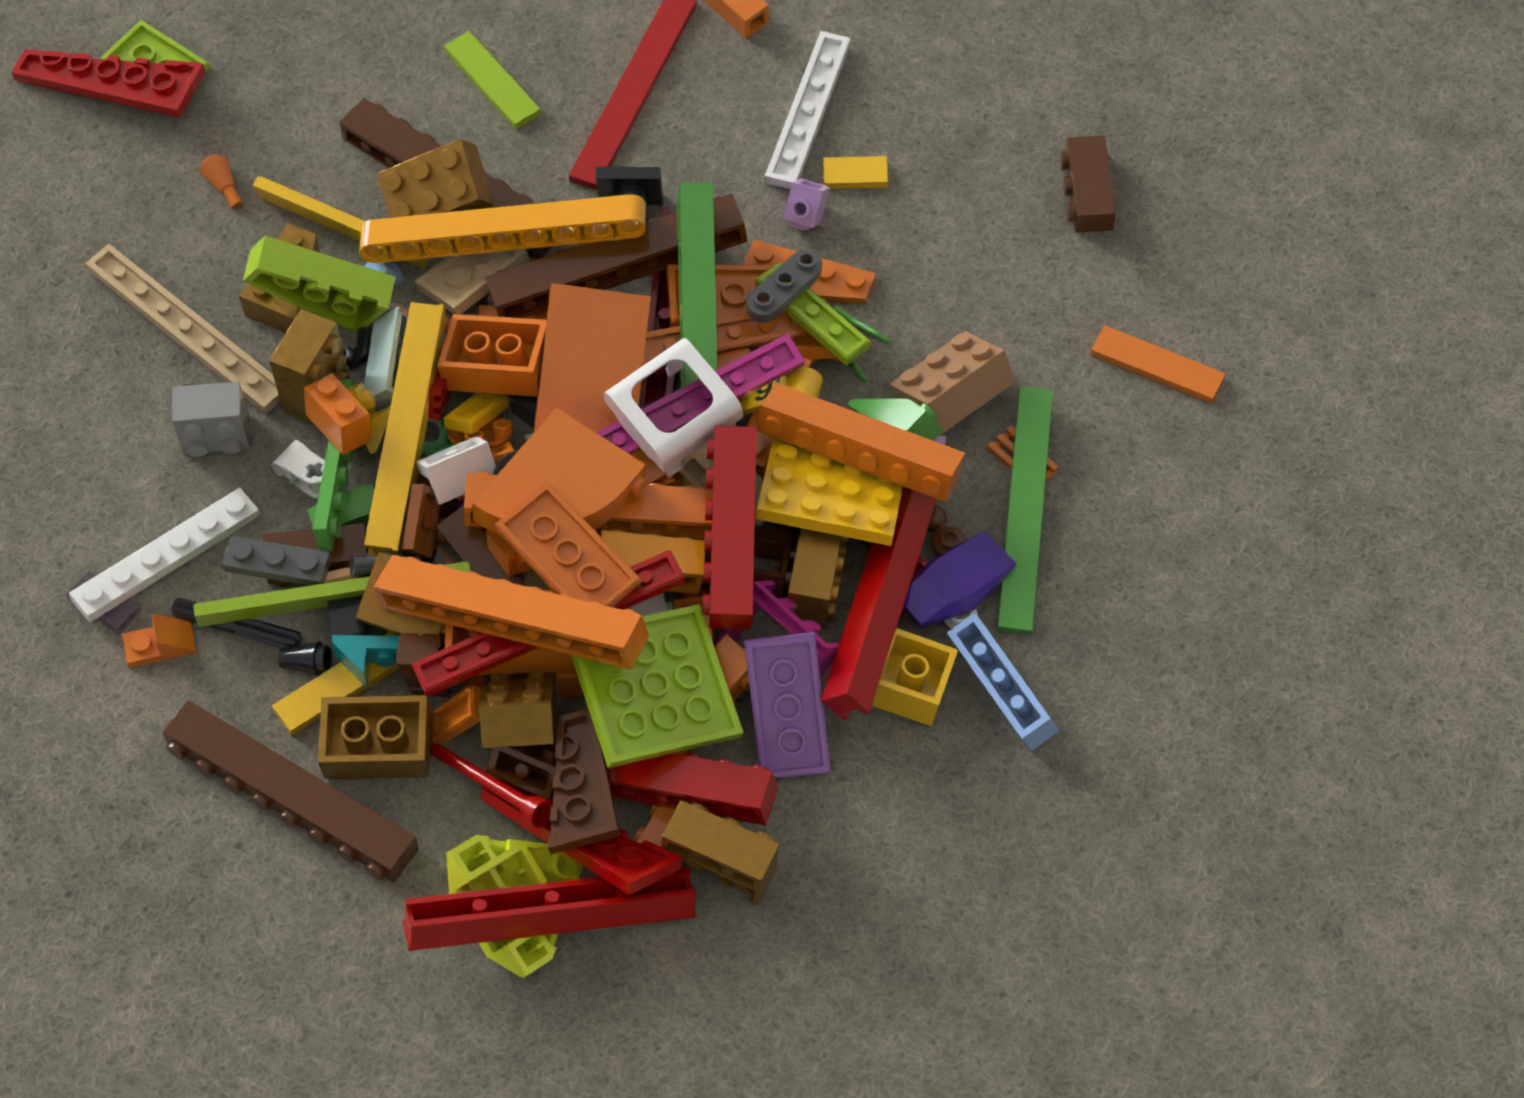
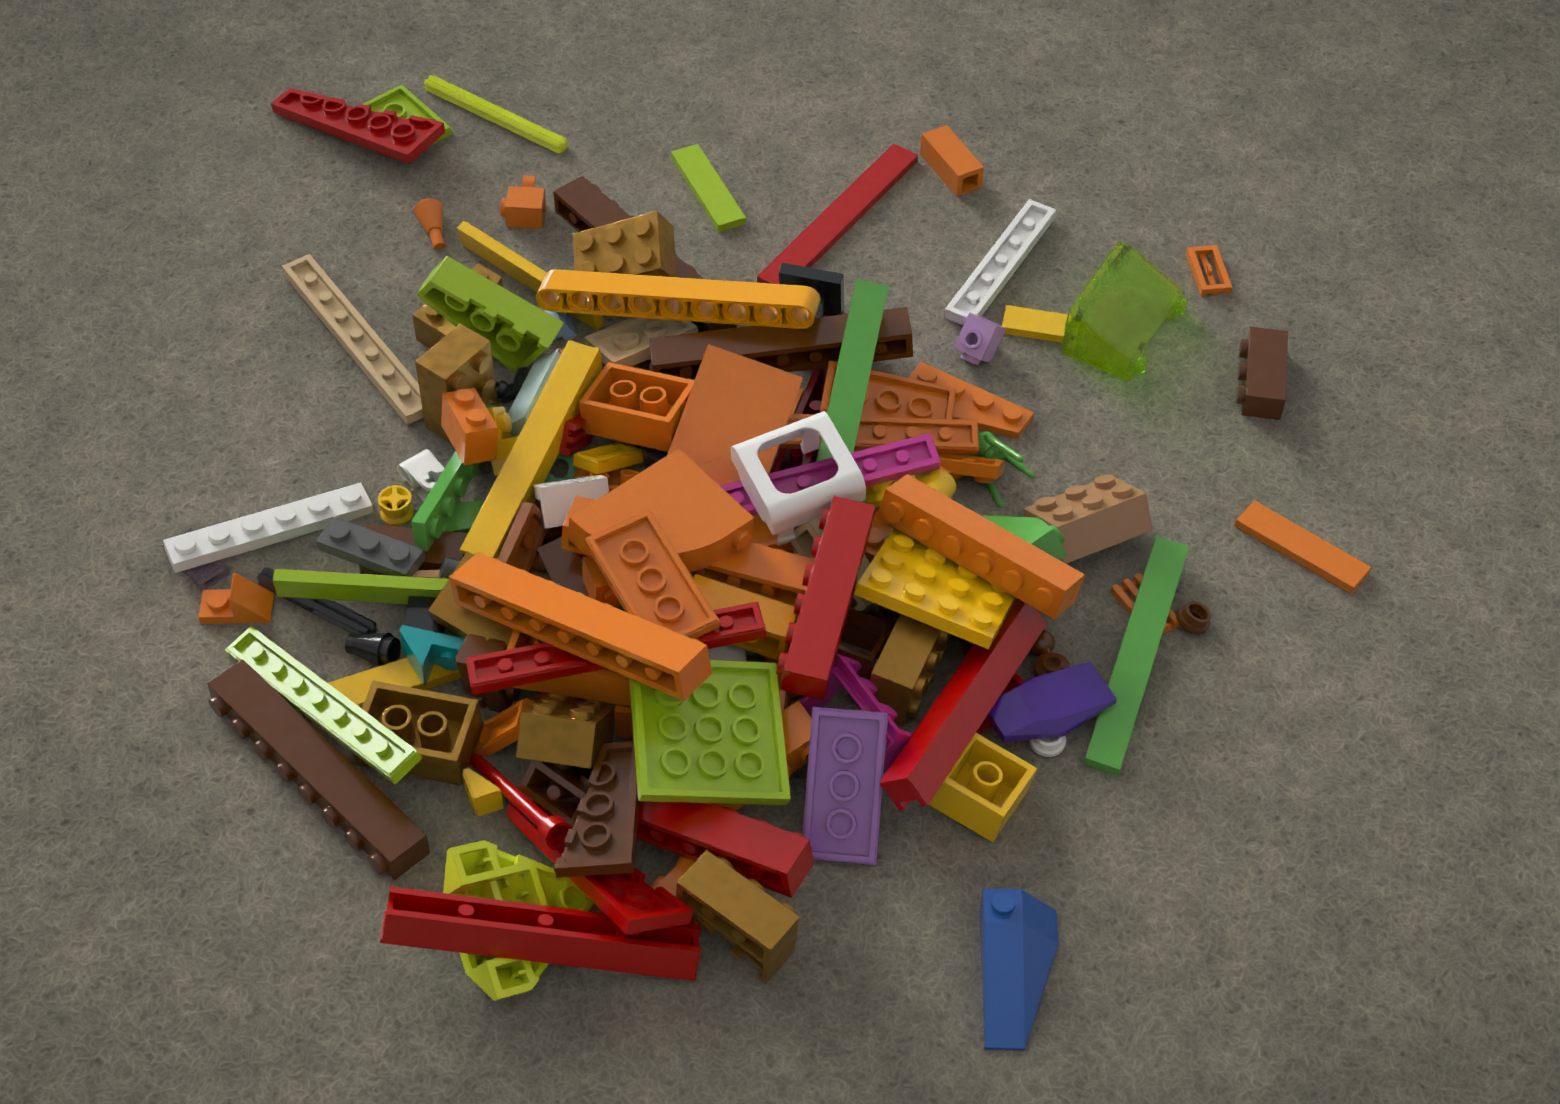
camera: 10 degrees right, 10 degrees down
(211, 418) = (351, 413): light grey brick -> none
(249, 36) = (496, 114): none -> neon yellow axle
(279, 497) = (388, 502): none -> yellow wheel
(281, 730) = (326, 706): none -> tile
(312, 141) = (524, 205): none -> orange brick
(451, 782) = (482, 794): none -> yellow slope
(780, 294) = (937, 397): dark grey plate -> none
(824, 324) = (961, 429): lime tile -> none
(940, 147) = (1121, 313): none -> clear neon green windscreen
(975, 832) = (1016, 959): none -> blue wedge
(1003, 682) = (1079, 812): light blue brick -> none
(1022, 96) = (1212, 288): none -> orange tile
(1070, 461) = (1194, 617): none -> reddish brown plate

